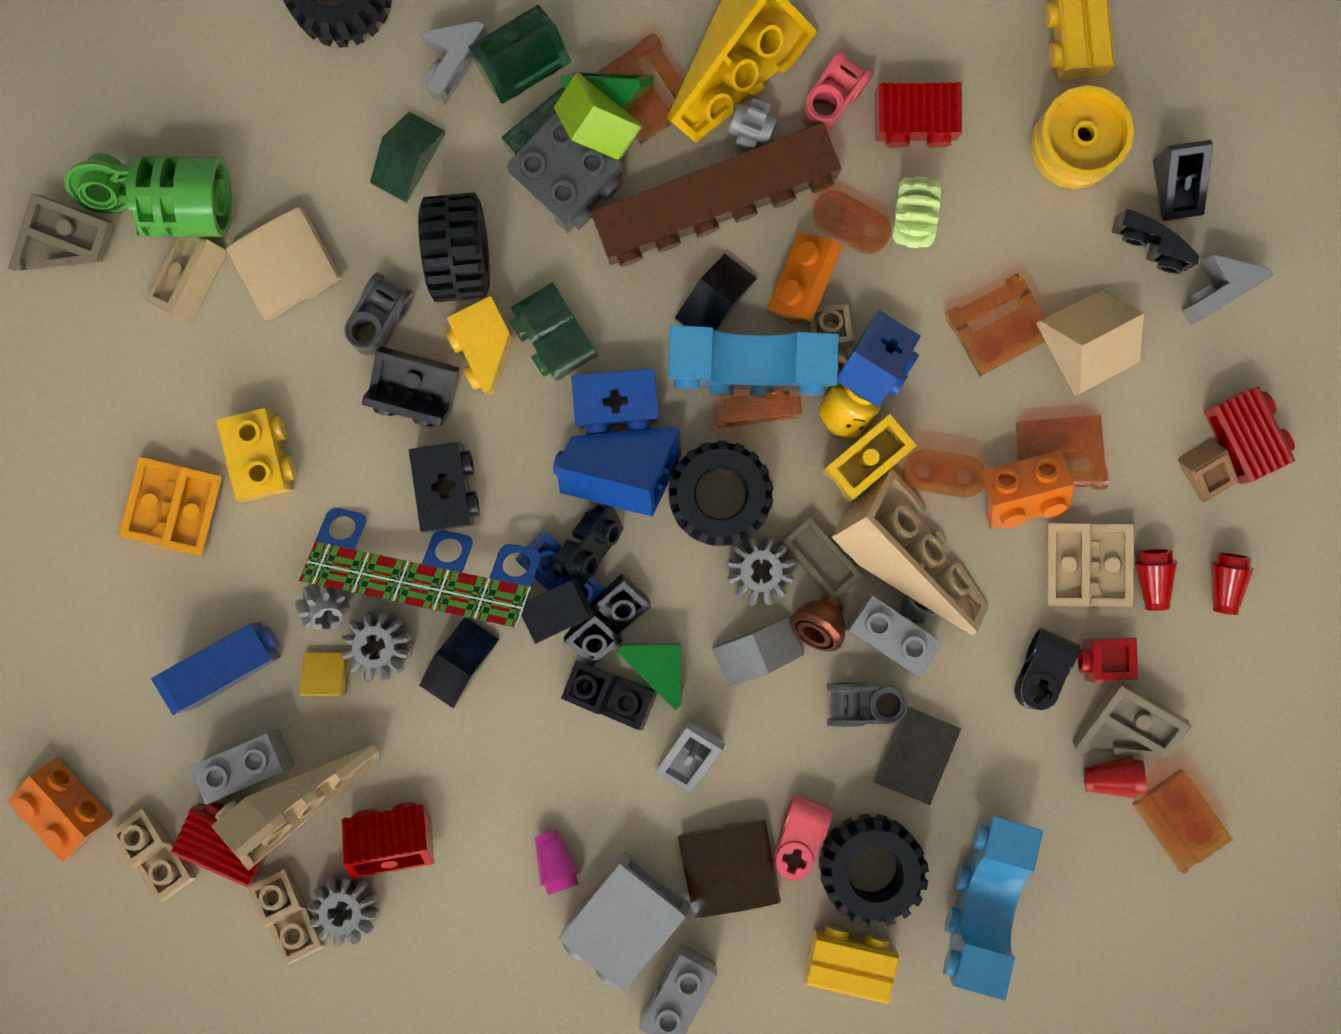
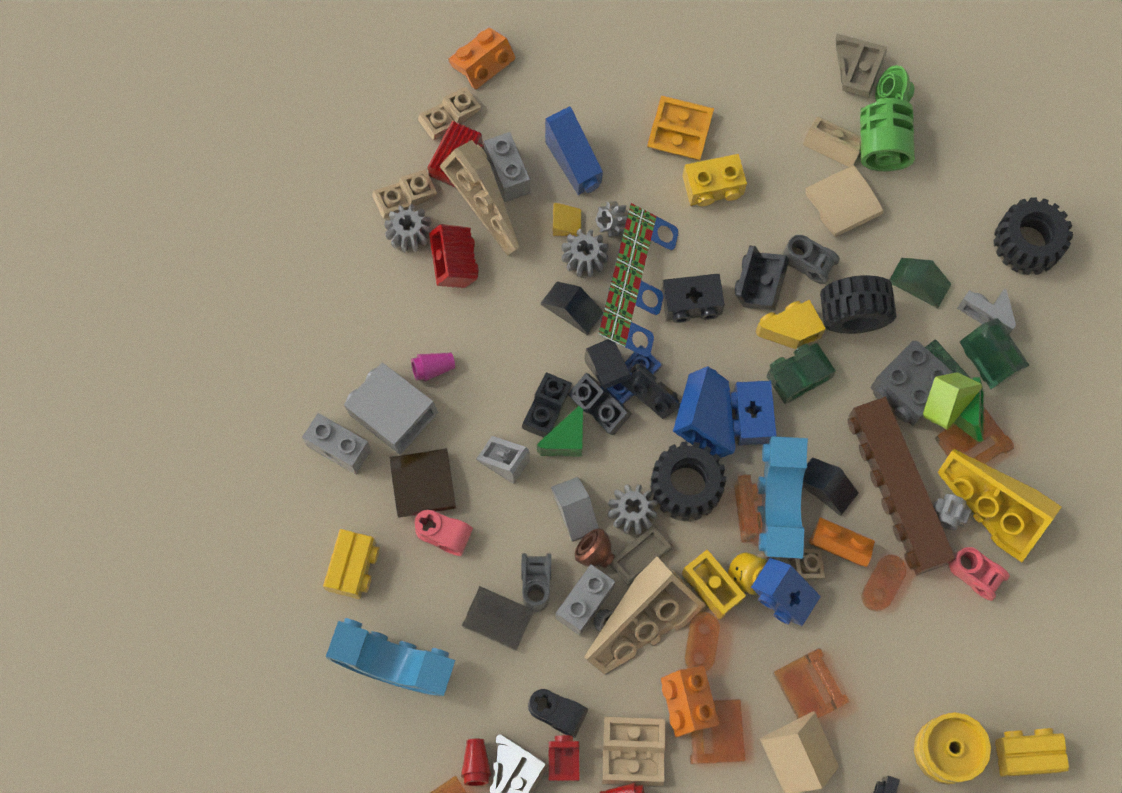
camera: 85 degrees right, 15 degrees down
(892, 899) = (410, 556): black tyre -> none
(916, 212) = (892, 624): yellowish green gear -> none
(918, 113) = (965, 631): red brick -> none

